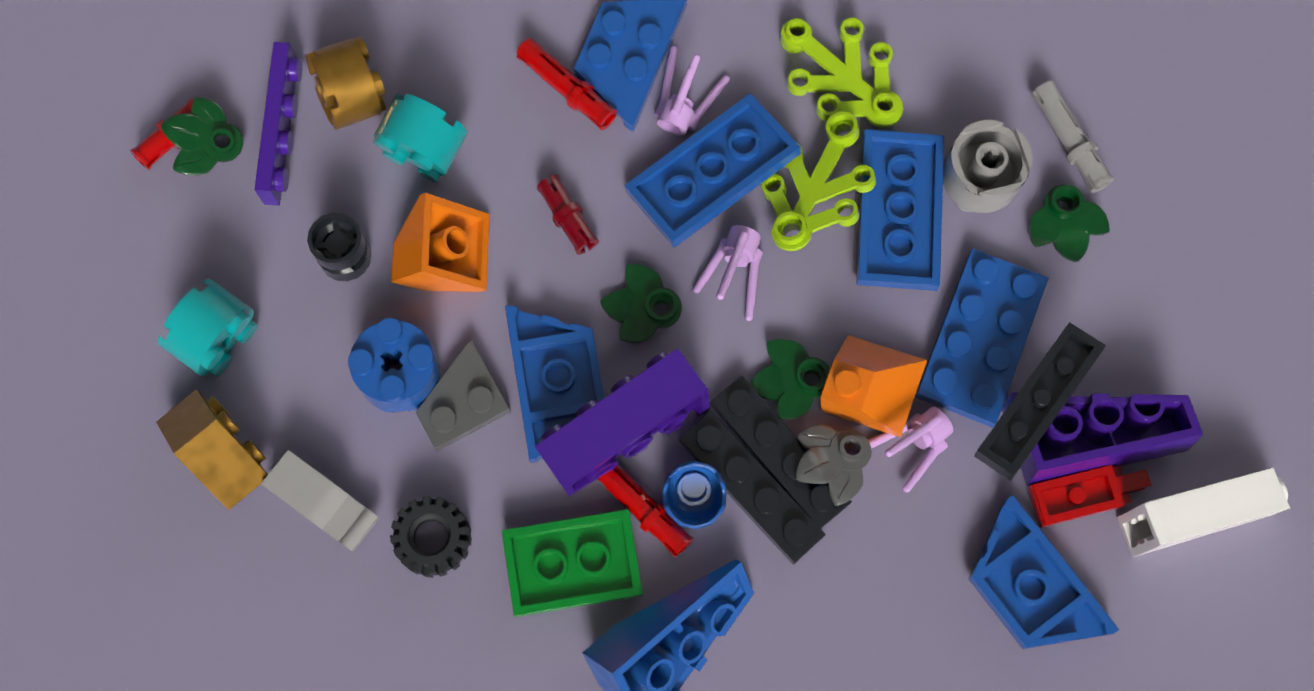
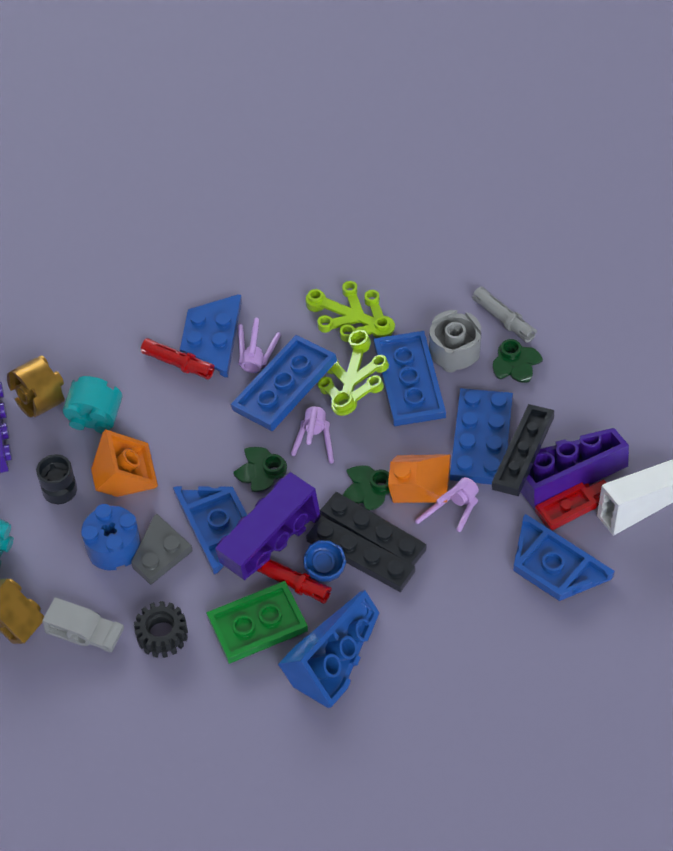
camera: 10 degrees left, 20 degrees down
(567, 214) = (198, 430): dark red pin -> none
(829, 463) = (408, 520): dark grey plate -> none

